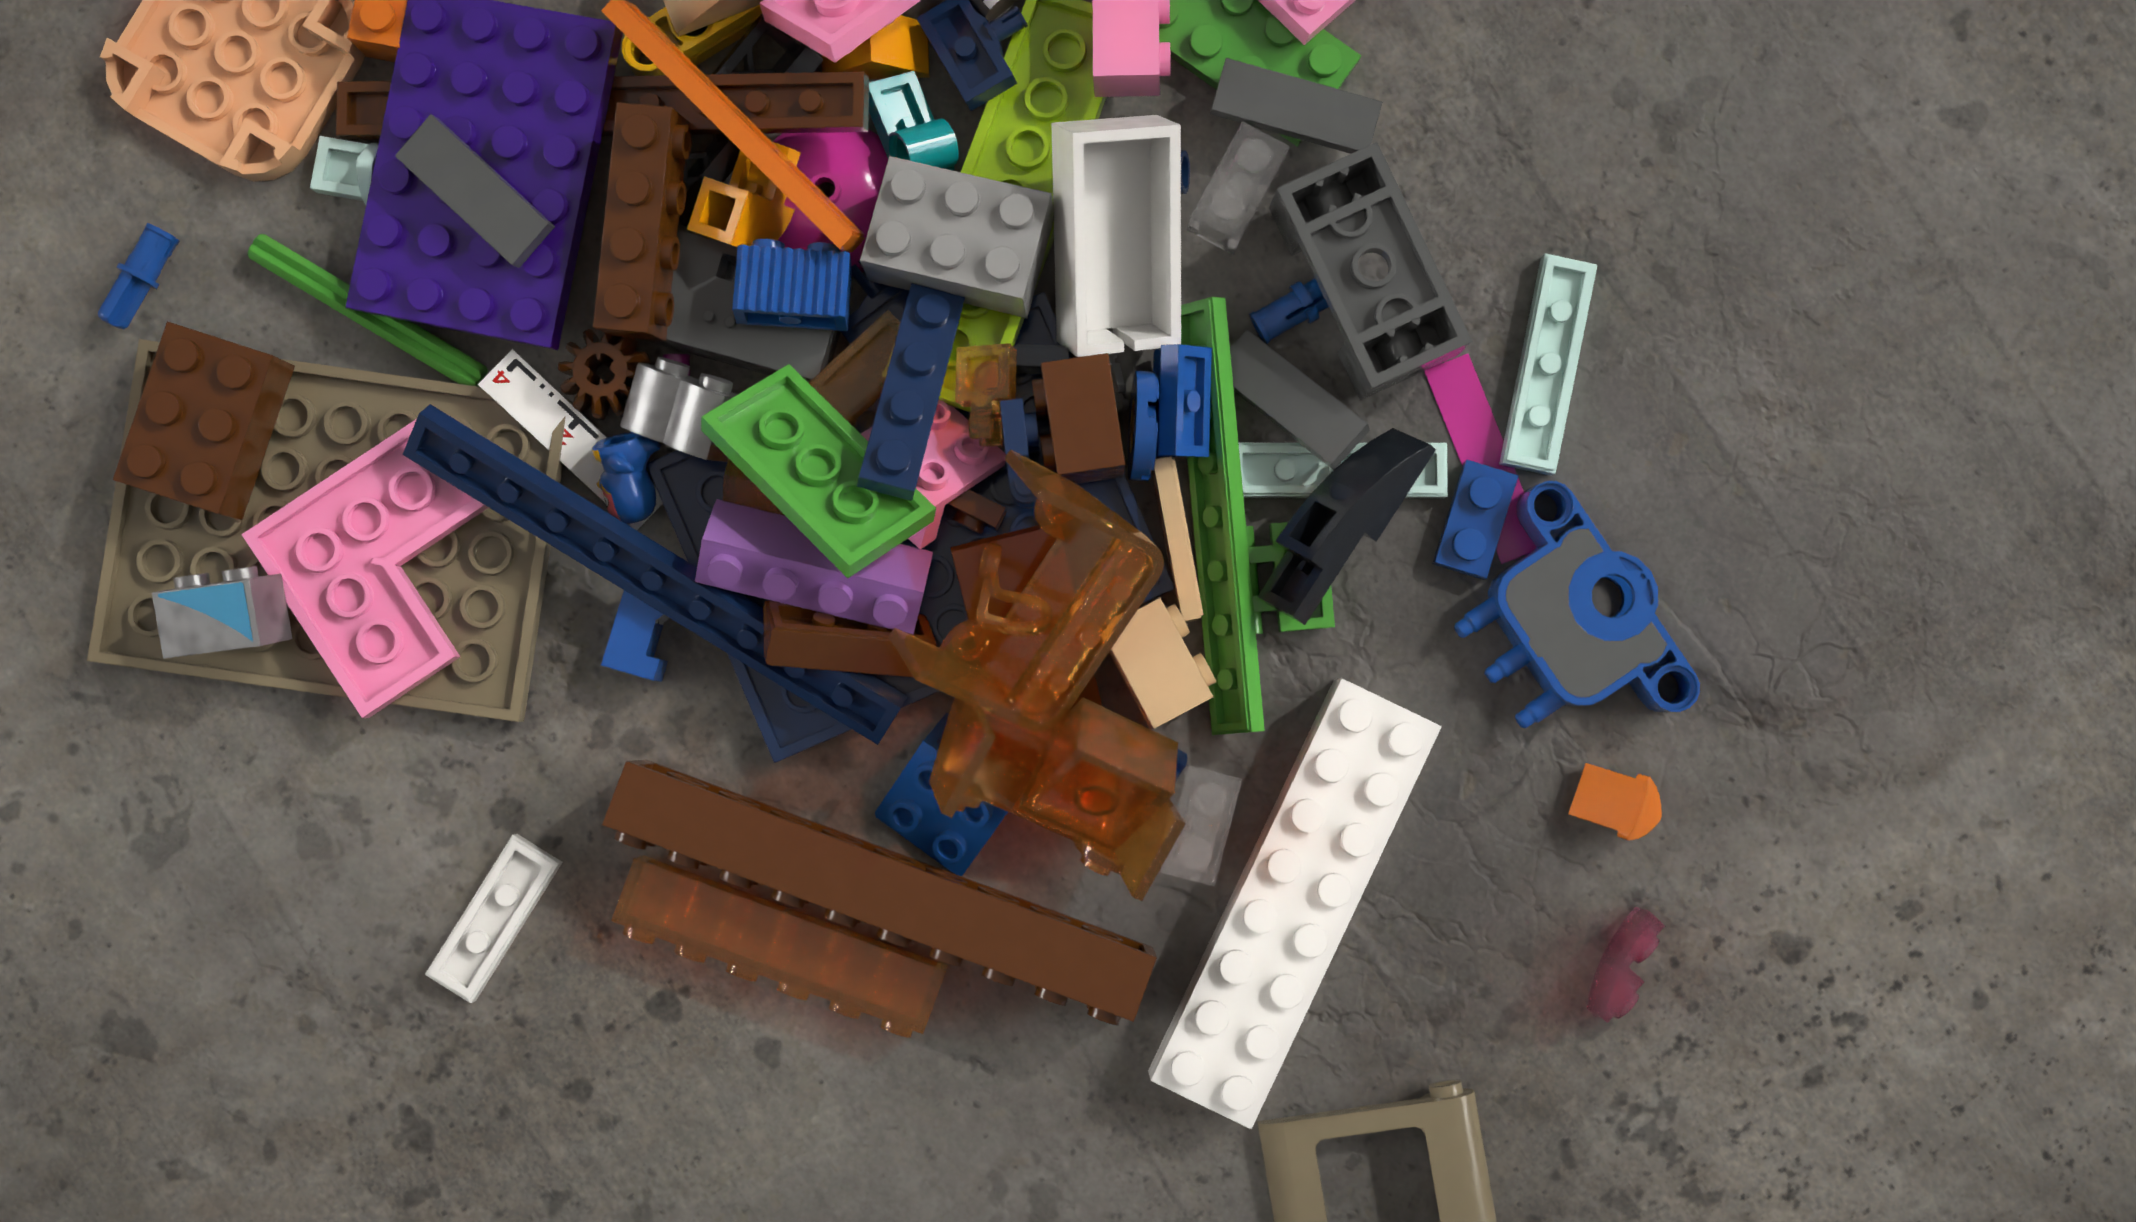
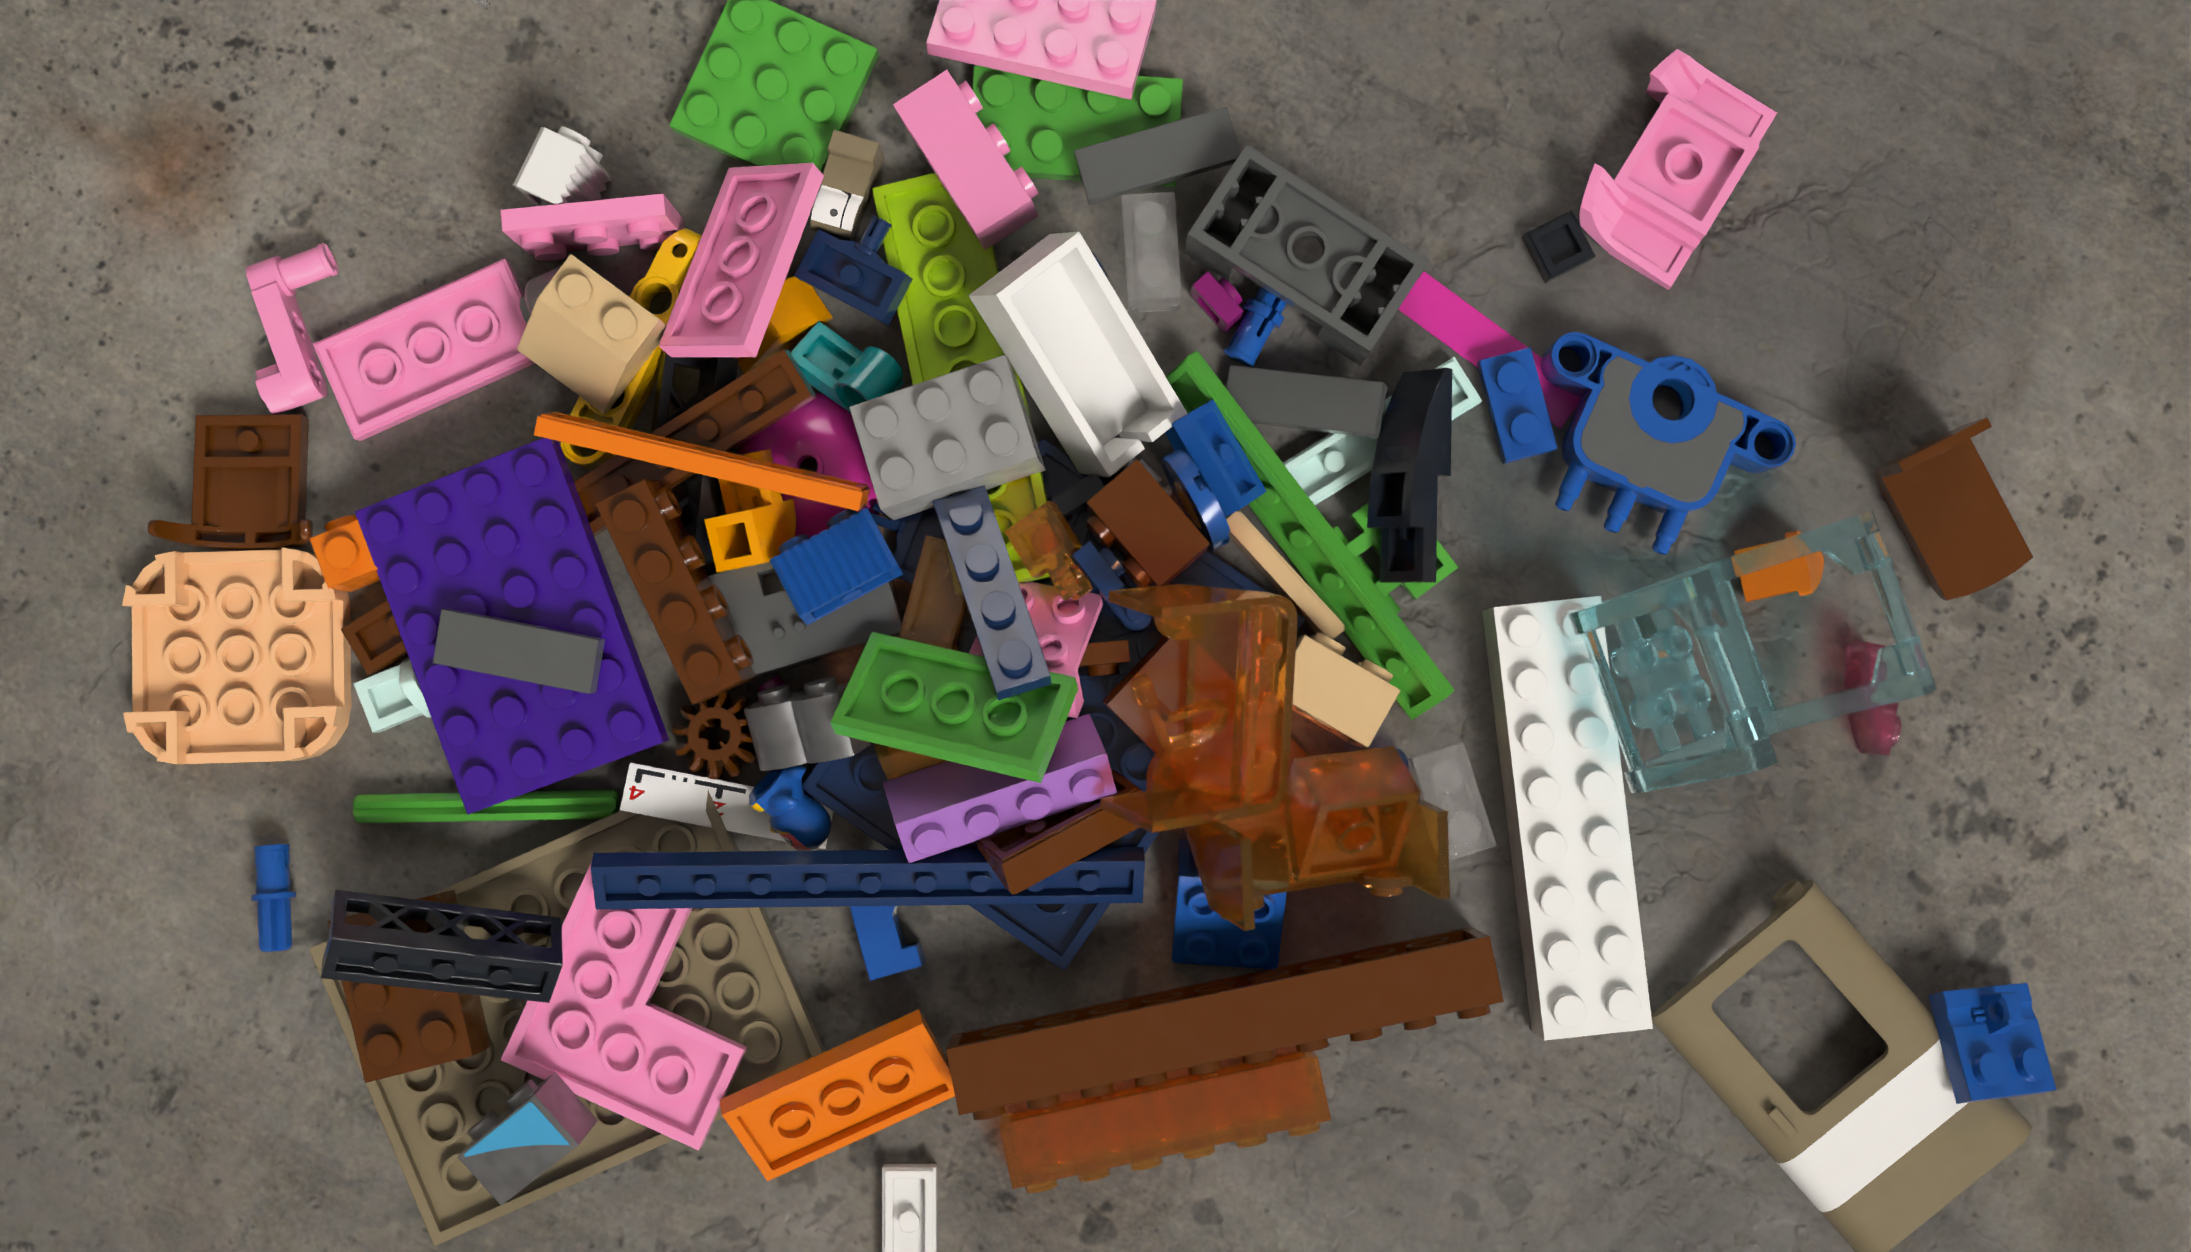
camera: 25 degrees left, 0 degrees up
(245, 411) = (446, 956): none -> black fence
(512, 748) = (840, 1096): none -> orange plate
(1271, 266) = (1218, 301): none -> magenta plate
(1465, 835) = (1670, 683): none -> clear light blue windscreen
(1548, 364) = (1496, 239): light aqua tile -> none
(1599, 404) = (1558, 246): none -> black tile
(1742, 401) = (1676, 170): none -> bright pink piece
(1798, 850) = (1953, 514): none -> reddish brown piece

